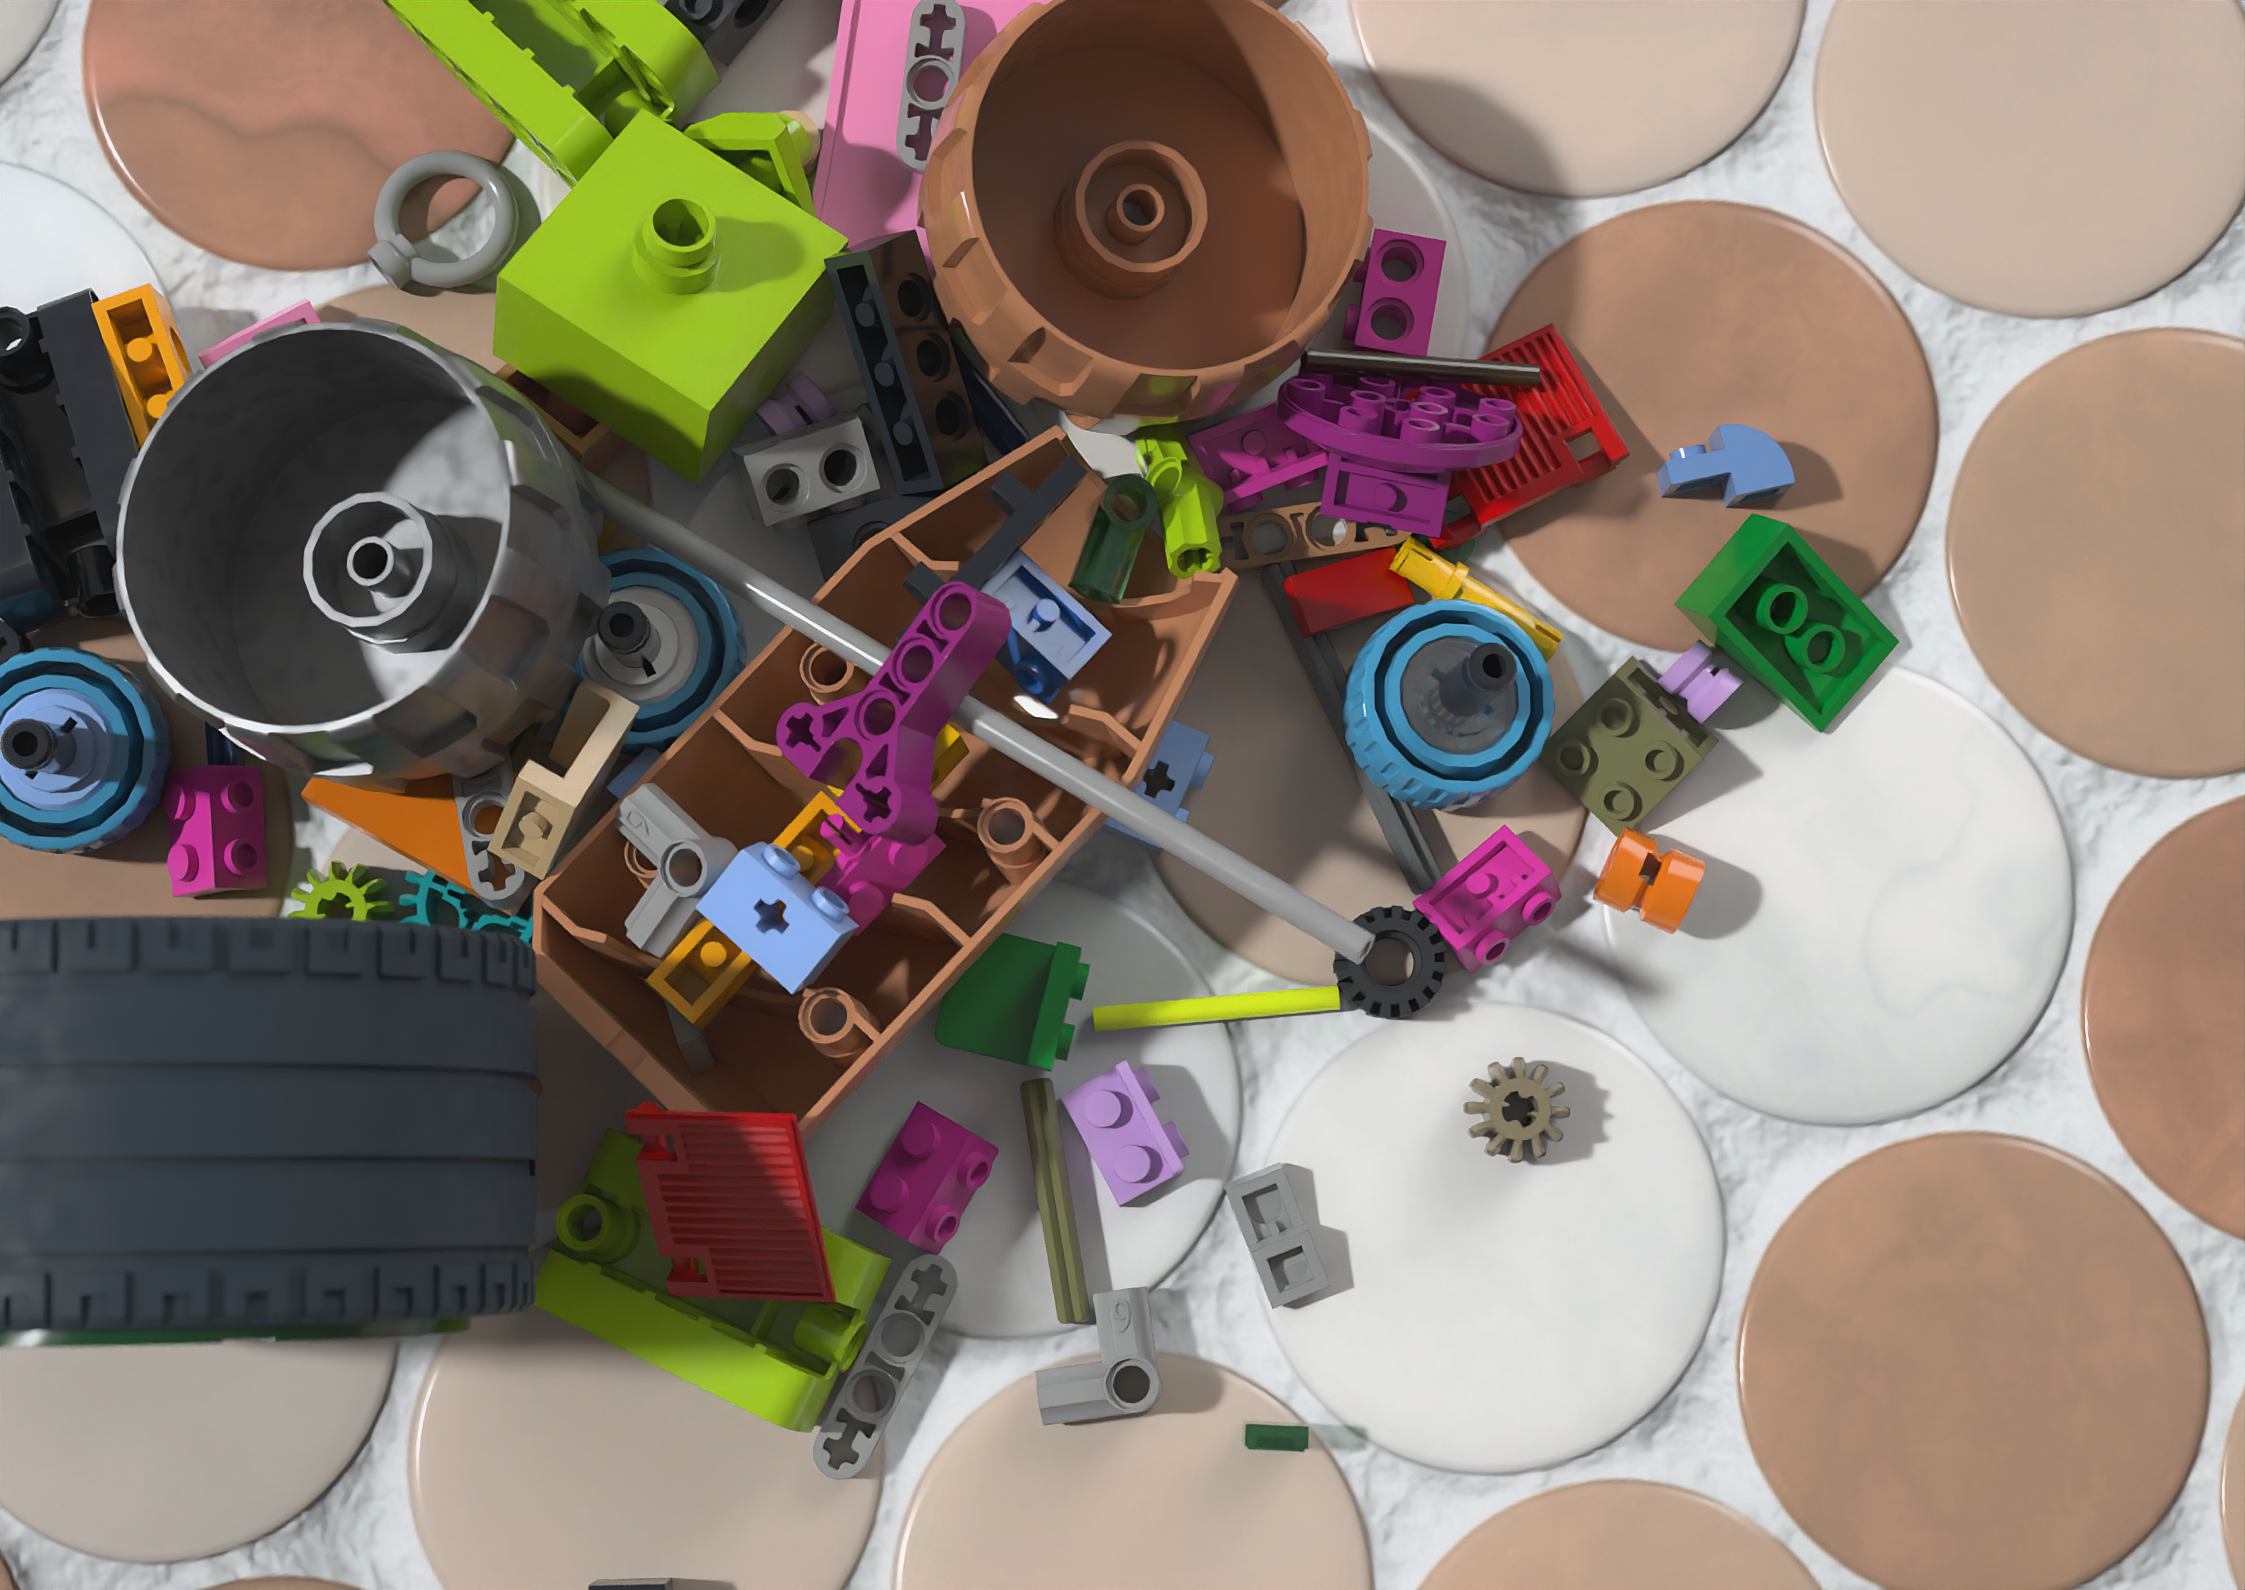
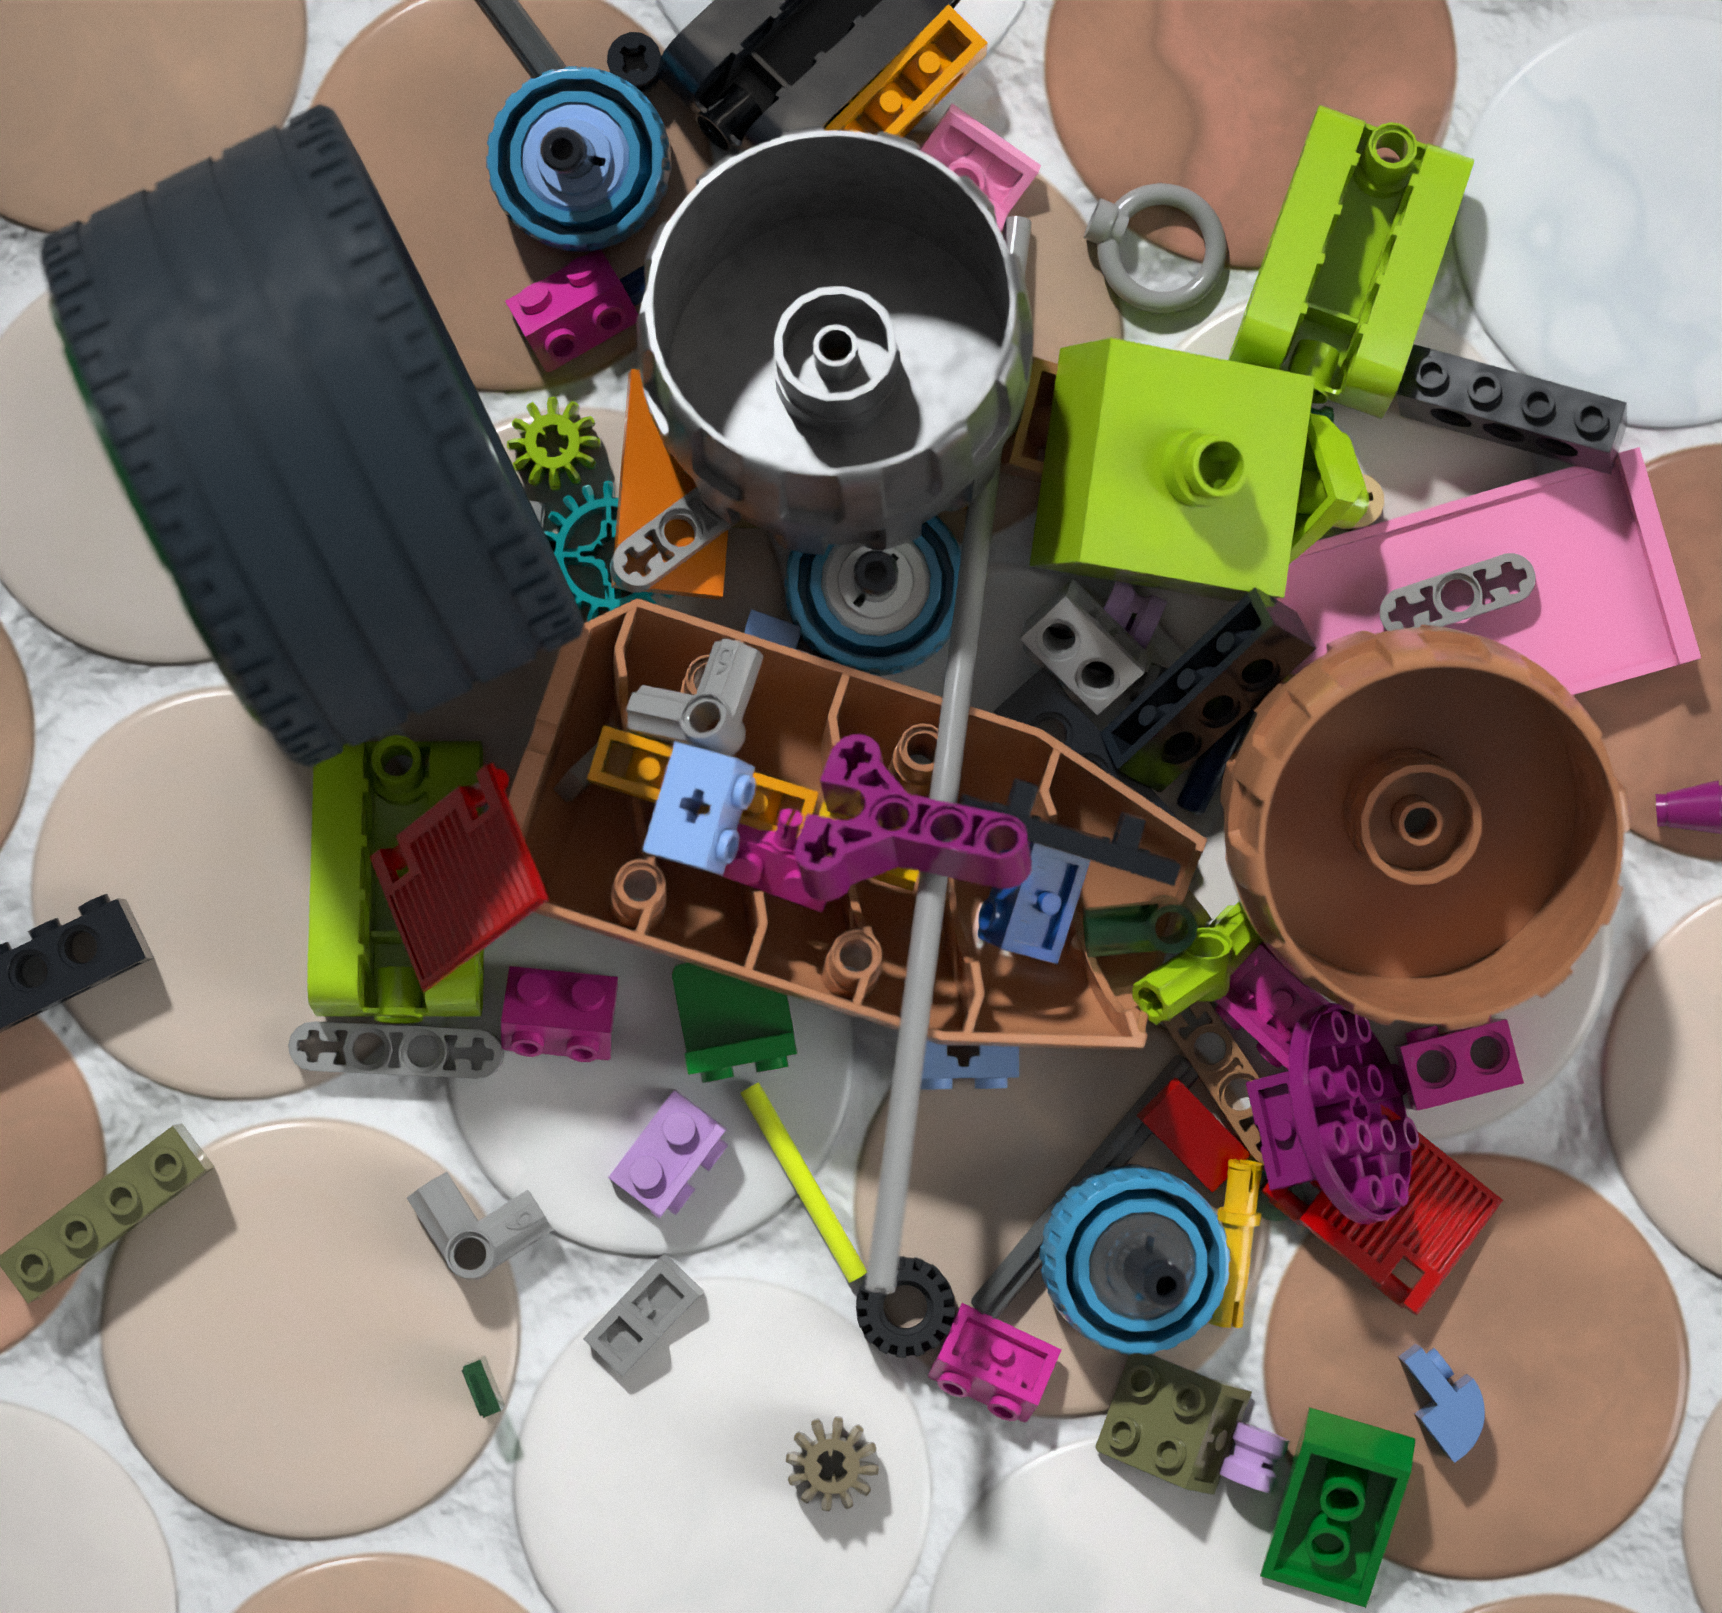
camera: 75 degrees right, 5 degrees up
(549, 808) = (704, 578): tan panel -> none
(1055, 1201) = (589, 1124): olive axle -> none
(1420, 367) = (1407, 1114): dark brown bar -> none
(1670, 886) = (1068, 1508): orange wheel -> none

